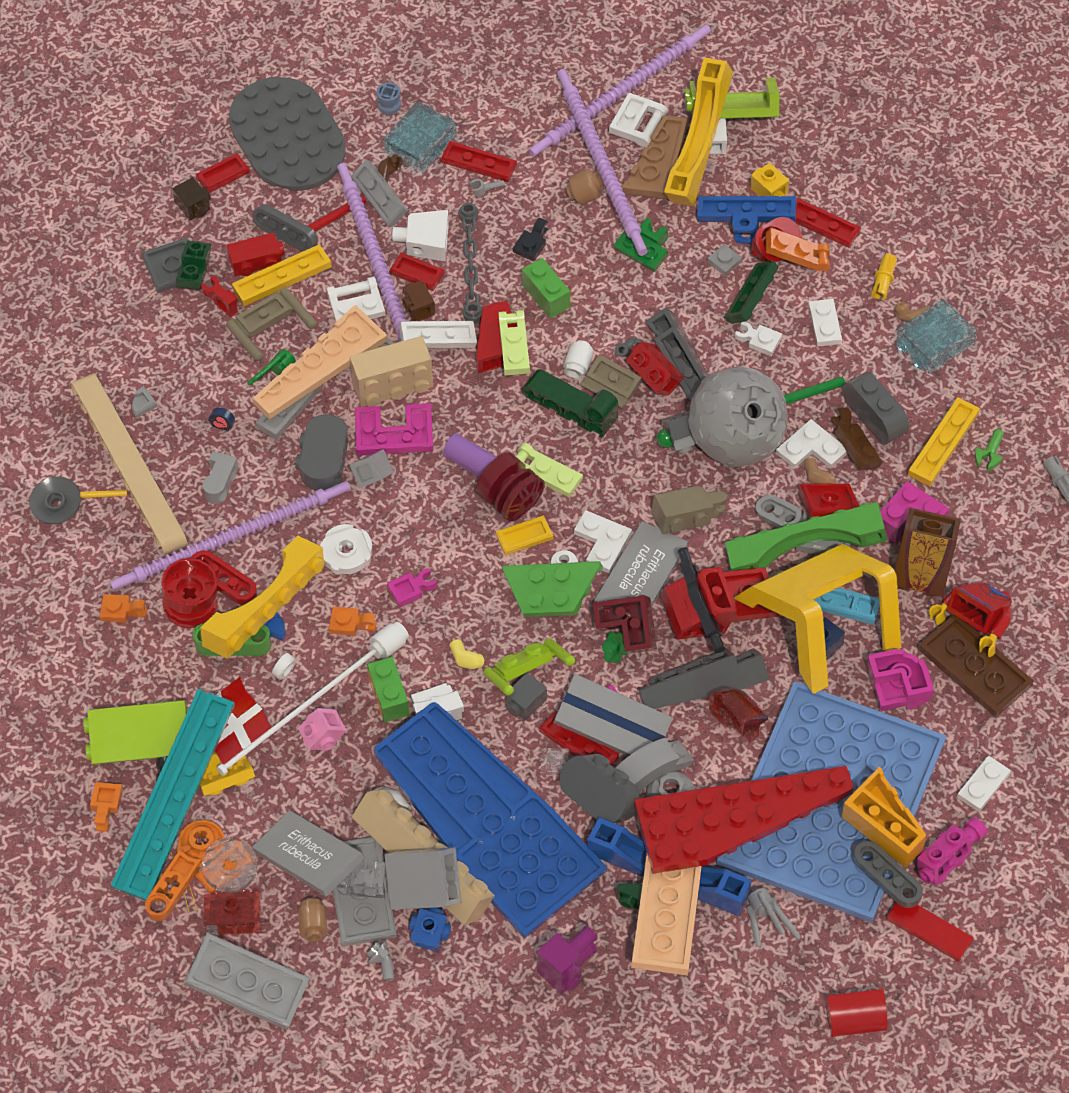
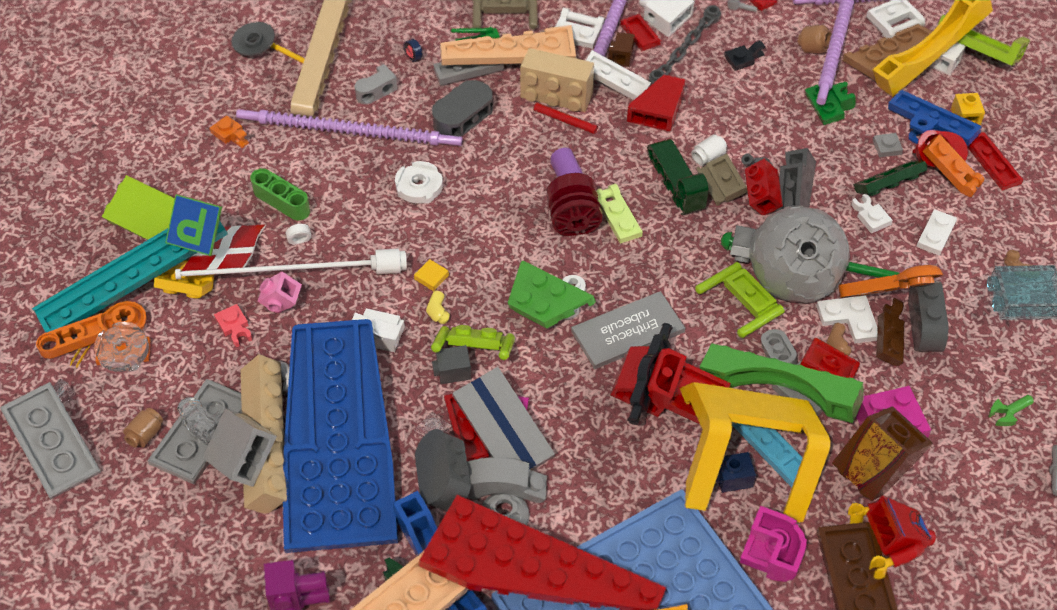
camera: 35 degrees right, 5 degrees down
(105, 800) = (90, 250): orange plate -> none
(142, 402) = (372, 14): light grey tile -> none
(189, 592) = (277, 143): red wheel -> none
(208, 715) = (193, 224): none -> blue piece
(230, 630) = (276, 180): yellow arch -> none
(234, 912) = (94, 383): clear red brick -> none
(236, 580) = (318, 164): red plate -> none
(276, 627) = (320, 204): blue tile -> none
(299, 781) = (233, 322): none -> coral plate
(308, 853) = (181, 375): light grey tile -> none
(348, 620) = (374, 232): orange plate -> none
(371, 468) = (487, 138): light grey panel -> none
(379, 954) = (164, 486): light grey plate -> none
(388, 689) = (354, 293): bright green brick -> none
(398, 439) = (510, 121): dark pink plate -> none
(409, 589) = (438, 234): dark pink plate -> none
(431, 938) = (215, 493): blue brick -> none
(433, 629) = (431, 275): none -> yellow tile
(435, 402) = (563, 117): none -> red bar
(514, 343) = (664, 108): yellowish green plate -> none
(524, 535) = (560, 249): yellow tile -> none
(546, 288) = (725, 89): bright green brick -> none
(608, 538) = (623, 287): white plate -> none
(614, 647) = (556, 372): green plant -> none
(631, 615) = (584, 356): dark red brick -> none
(687, 508) = (704, 302): dark tan hinge -> none
(704, 677) = (609, 440): dark grey wedge -> none
(717, 477) = (749, 293): none -> lime plate
(737, 709) = (611, 483): clear red brick -> none
(853, 381) = (911, 277): none -> orange beam
(884, 276) = (1015, 225): yellow axle -> none
(943, 442) = (971, 377): yellow plate -> none

